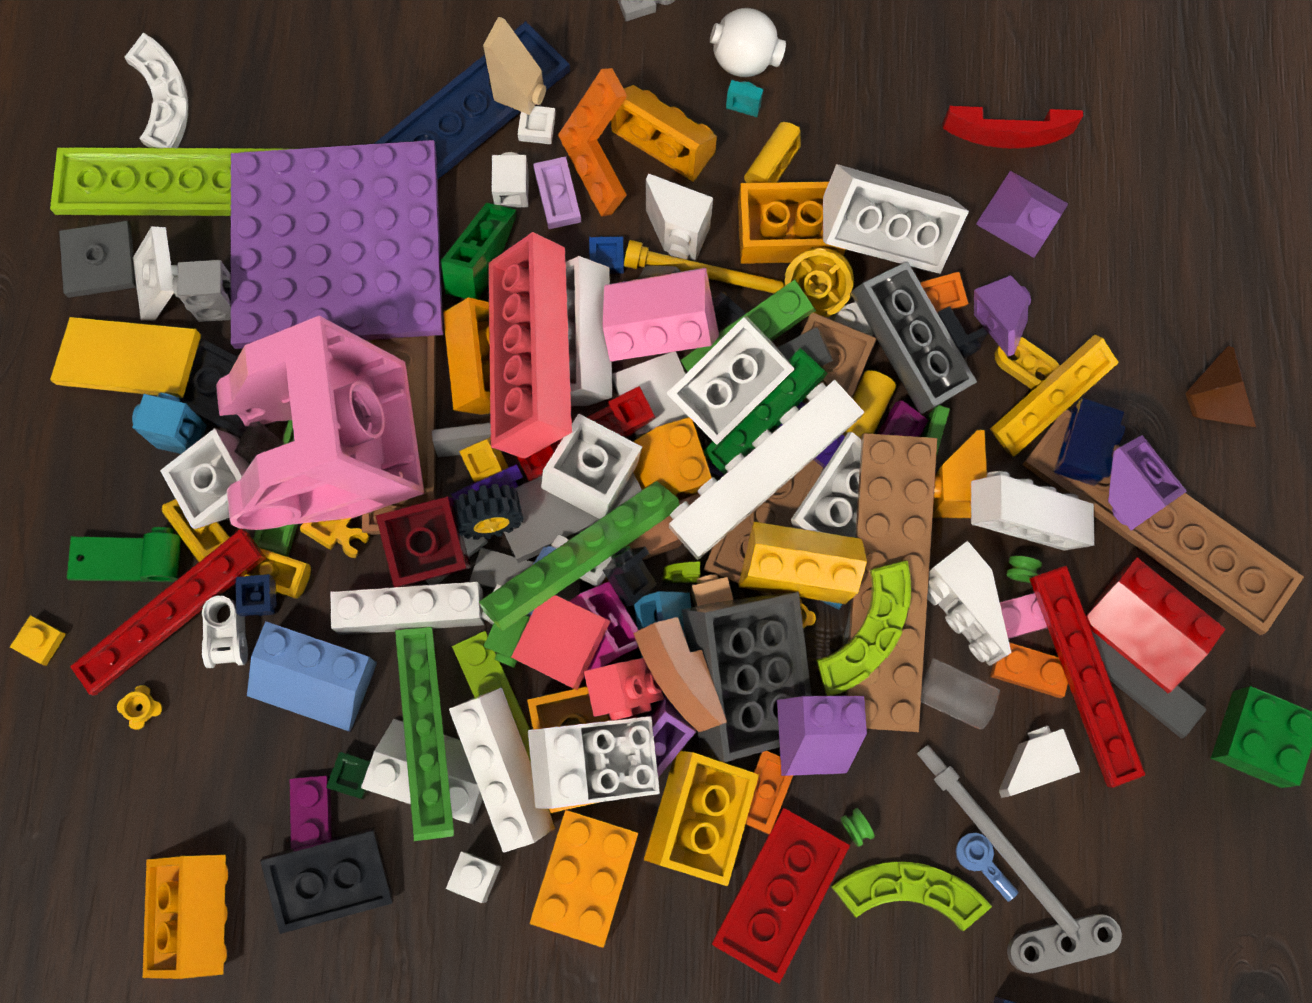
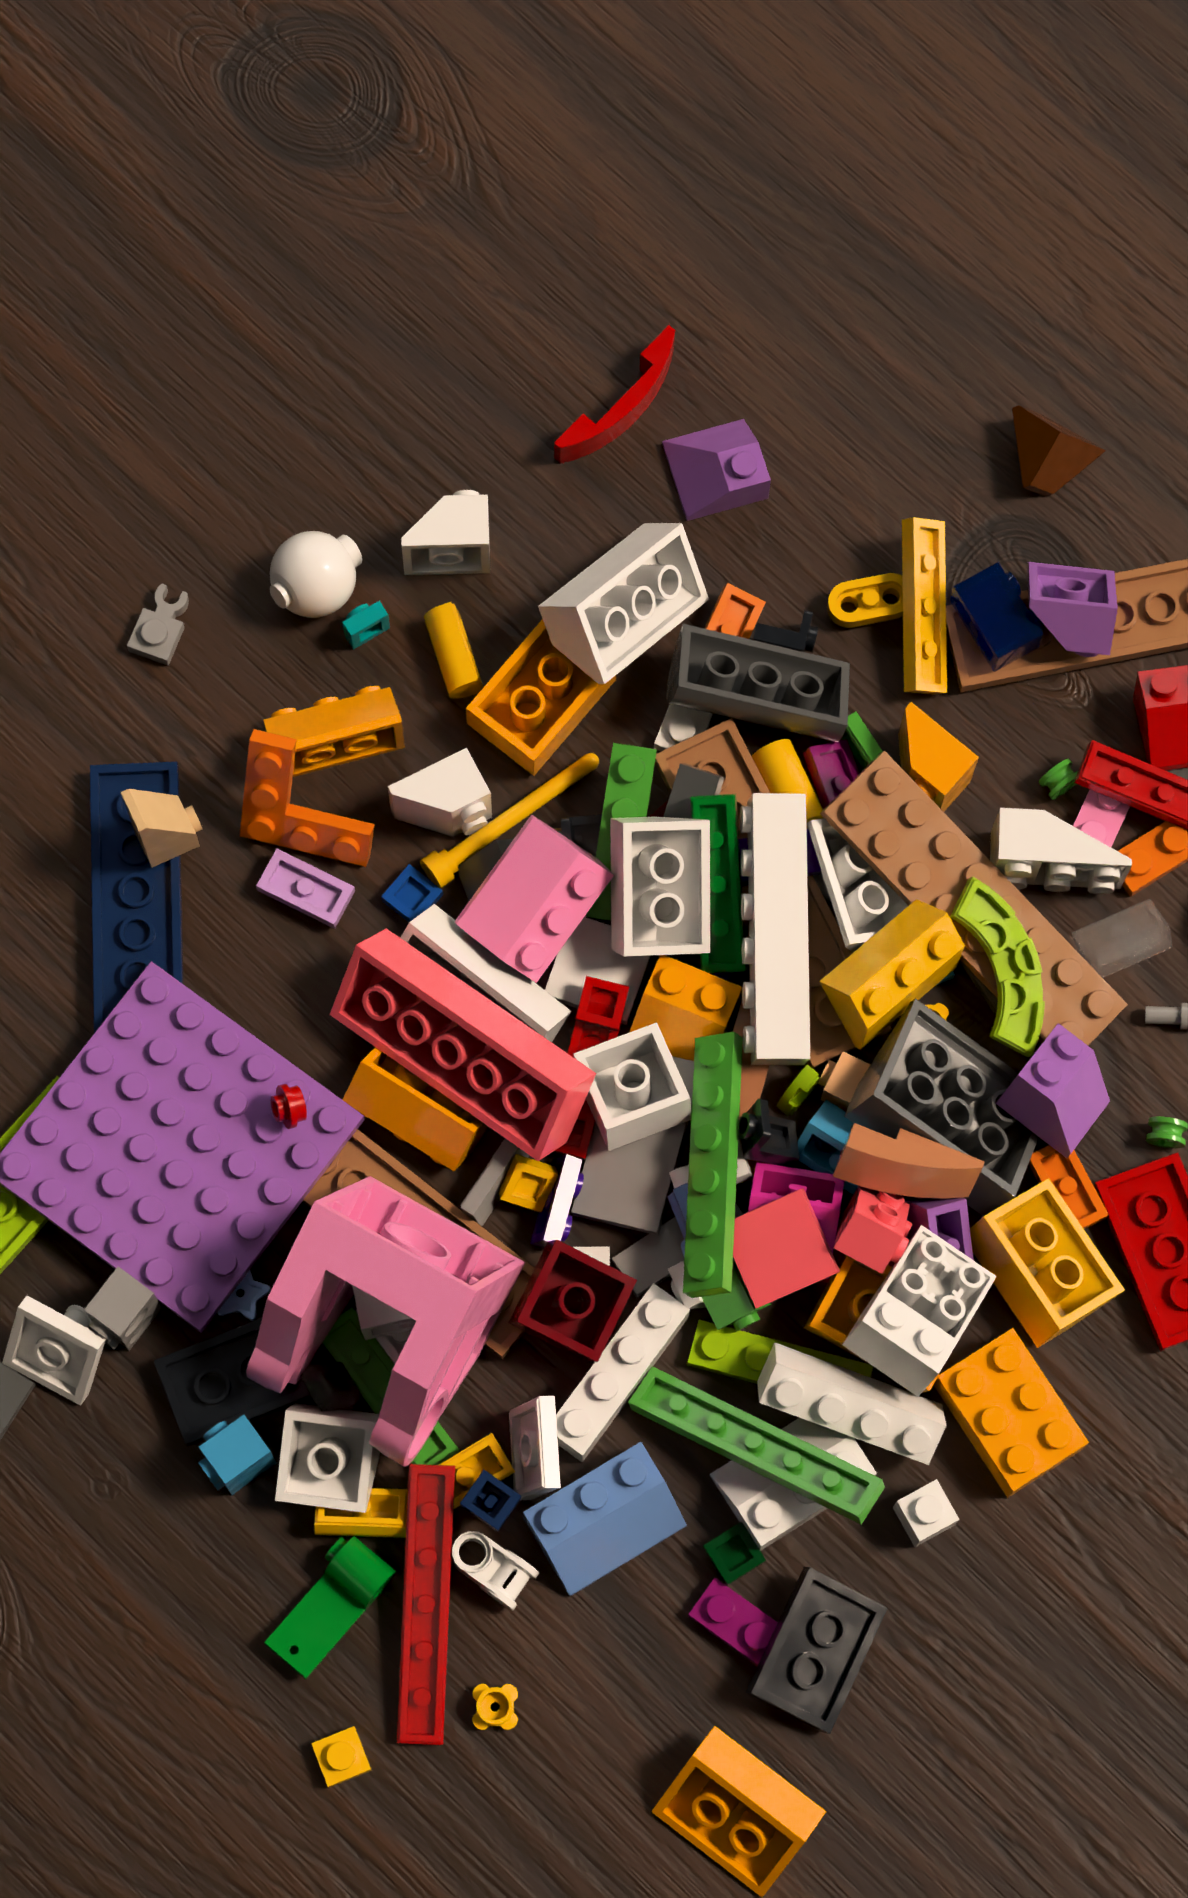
camera: 50 degrees left, 0 degrees up
(125, 357) = (115, 1448): yellow tile -> none
(313, 596) = (534, 1447): none -> white tile
(335, 531) = (479, 1382): yellow plate -> none
(404, 278) = (288, 1105): none -> red plate
(467, 262) = (303, 1014): green slope -> none
(488, 512) = (595, 1216): black wheel -> none
(510, 180) = (252, 922): white brick -> none
(537, 126) = (216, 848): white plate -> none
(823, 277) = (627, 713): yellow cylinder -> none
(837, 95) = (450, 537): none -> white slope
(1003, 311) = (803, 578): medium lavender slope -> none
(1031, 512) = (1020, 726): white brick -> none

